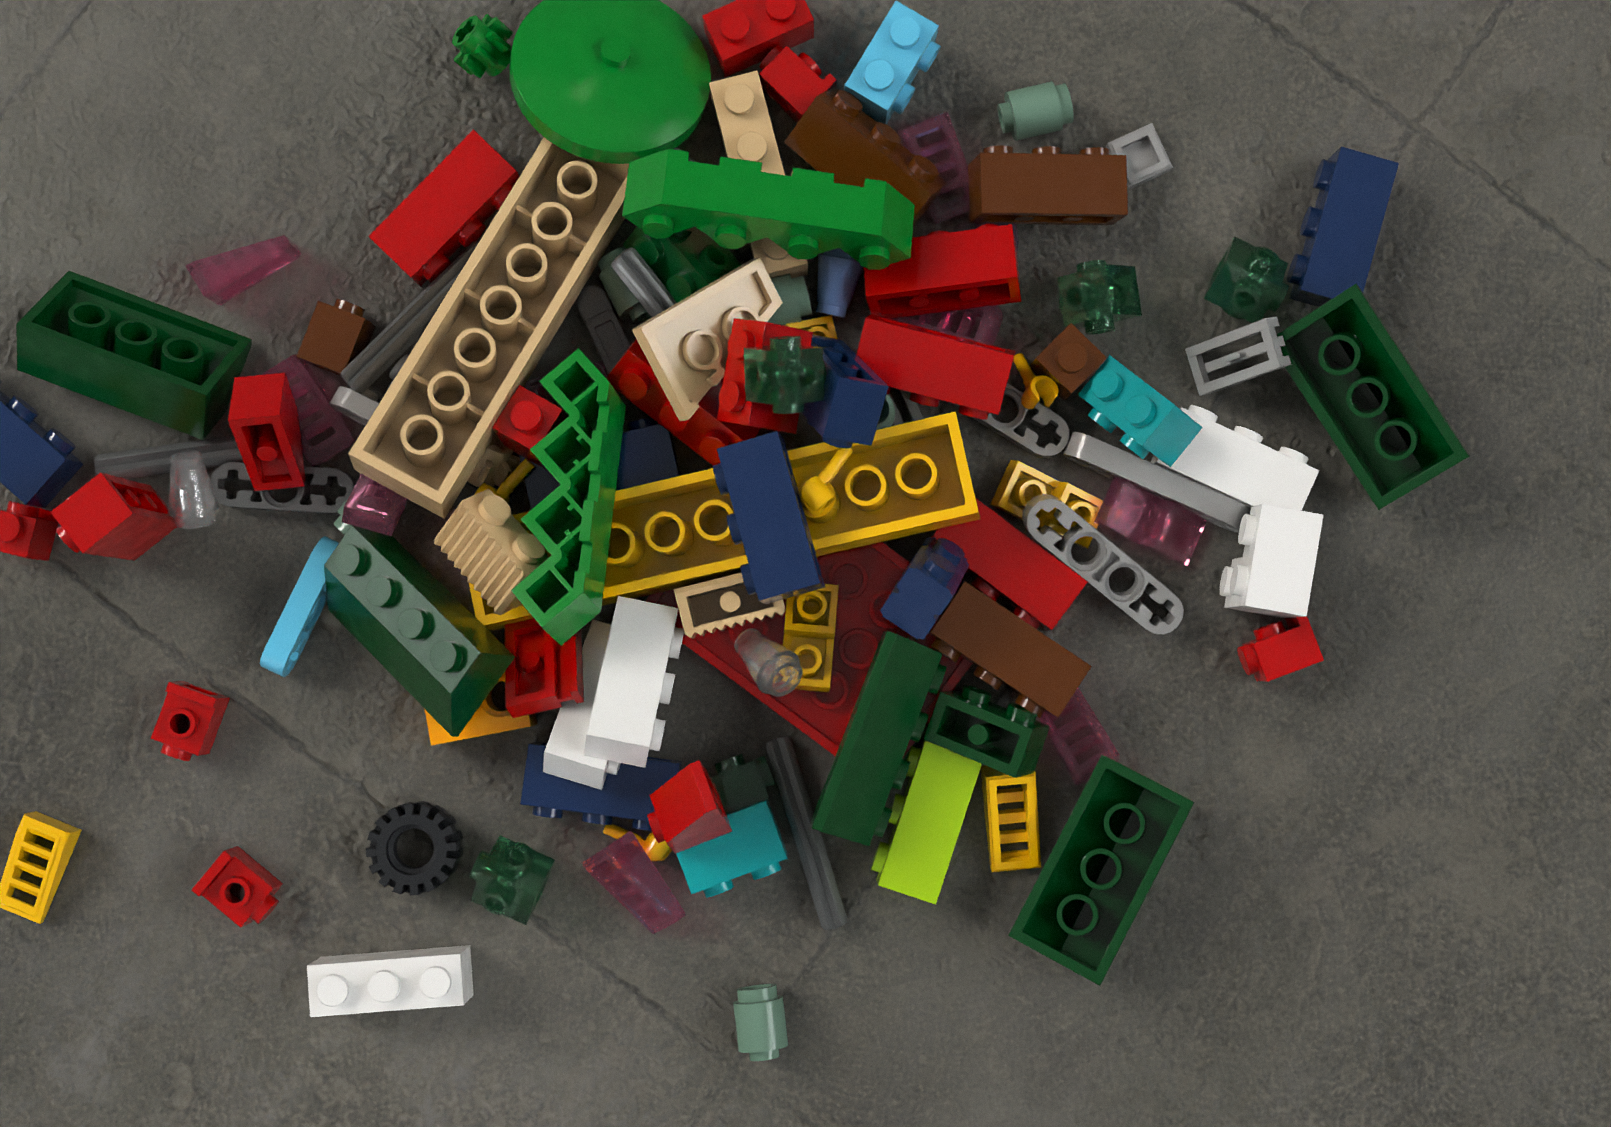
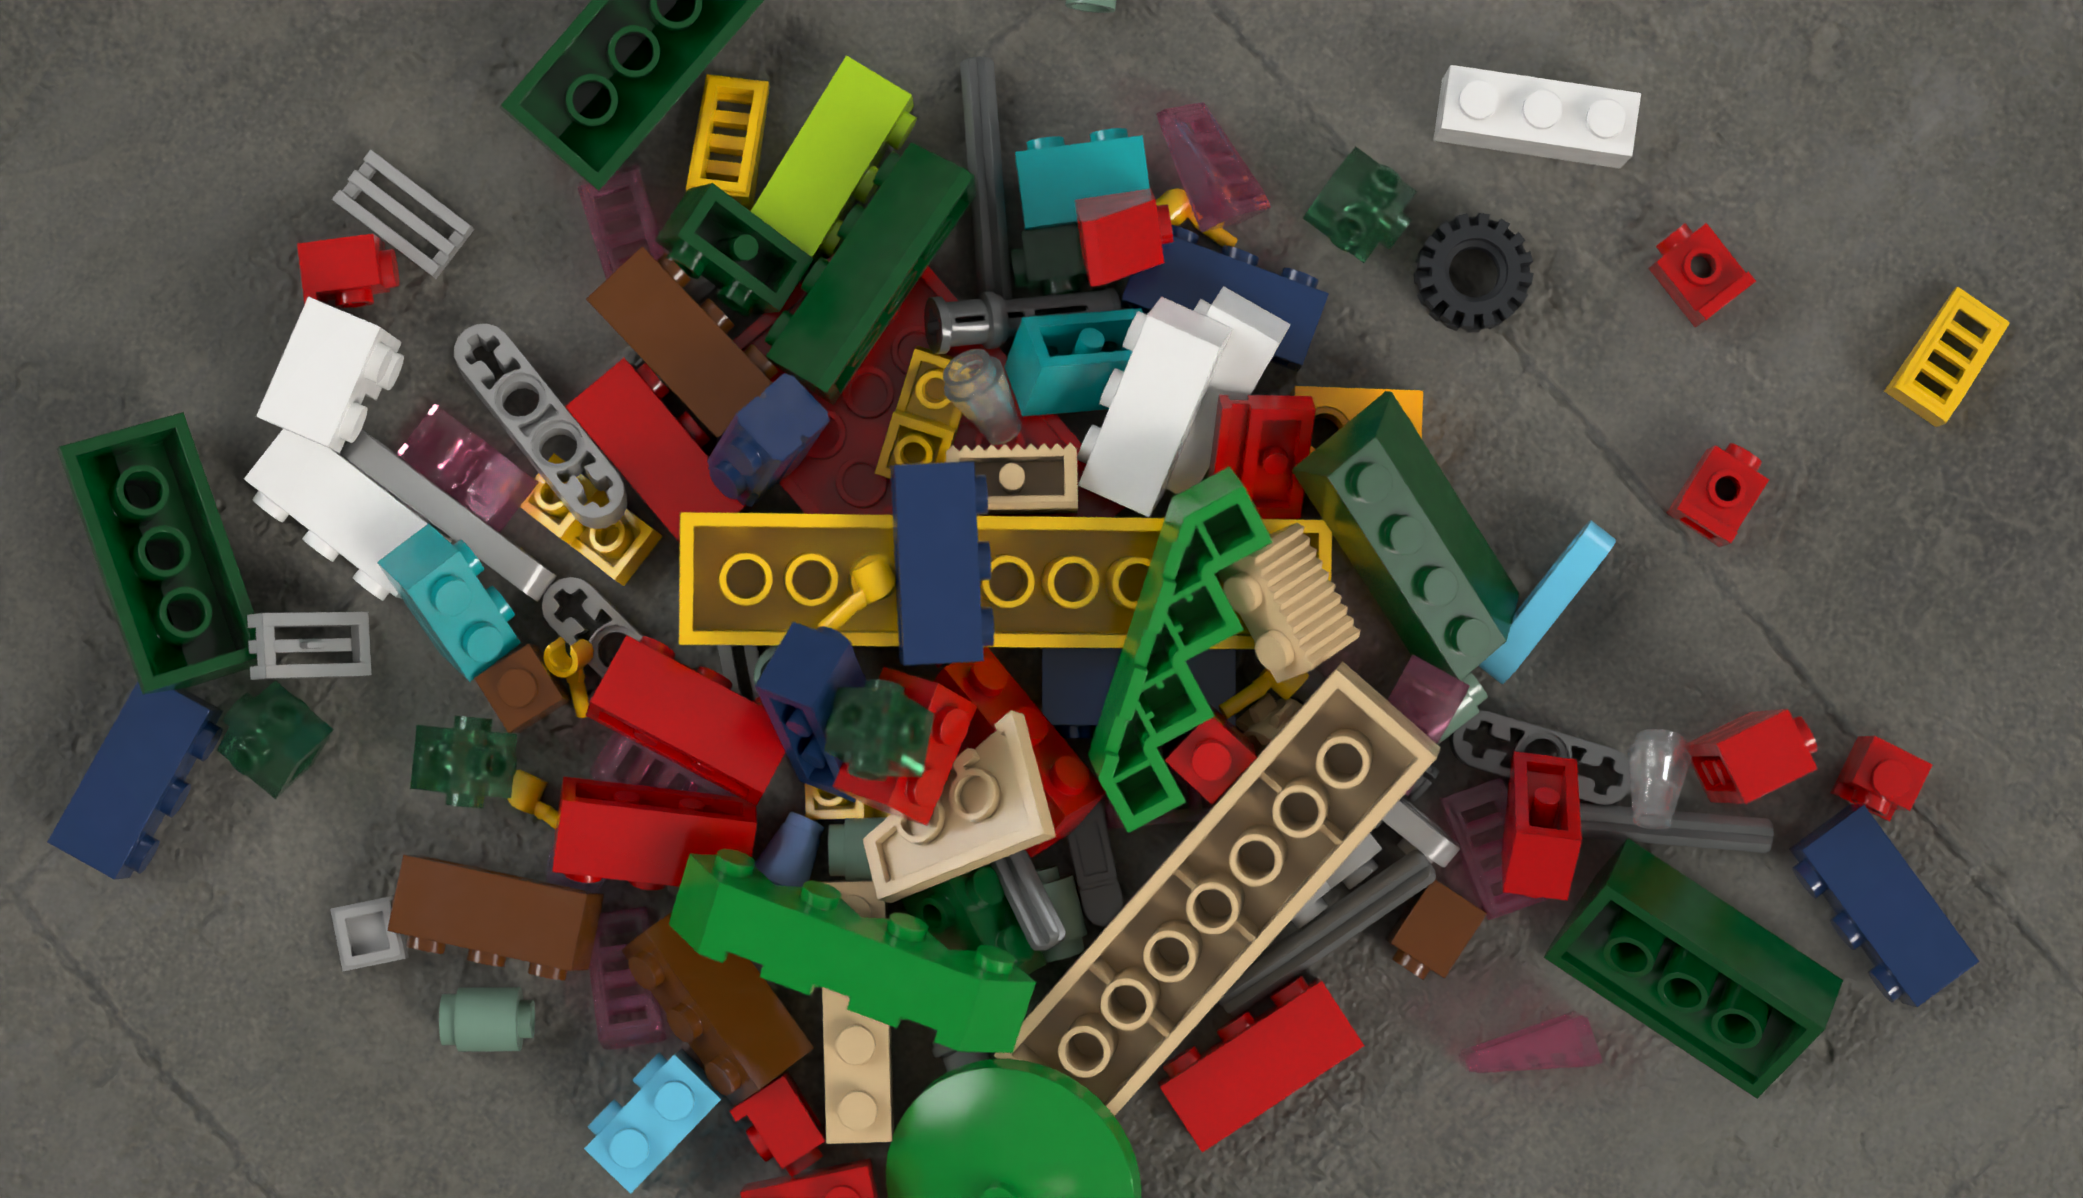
camera: 170 degrees left, 0 degrees up
(707, 706) = (1067, 360): none -> teal brick
(777, 727) = (987, 320): none -> dark grey pin
(1045, 283) = (527, 794): none -> yellow hand
(1286, 722) = (360, 181): none -> light grey tile

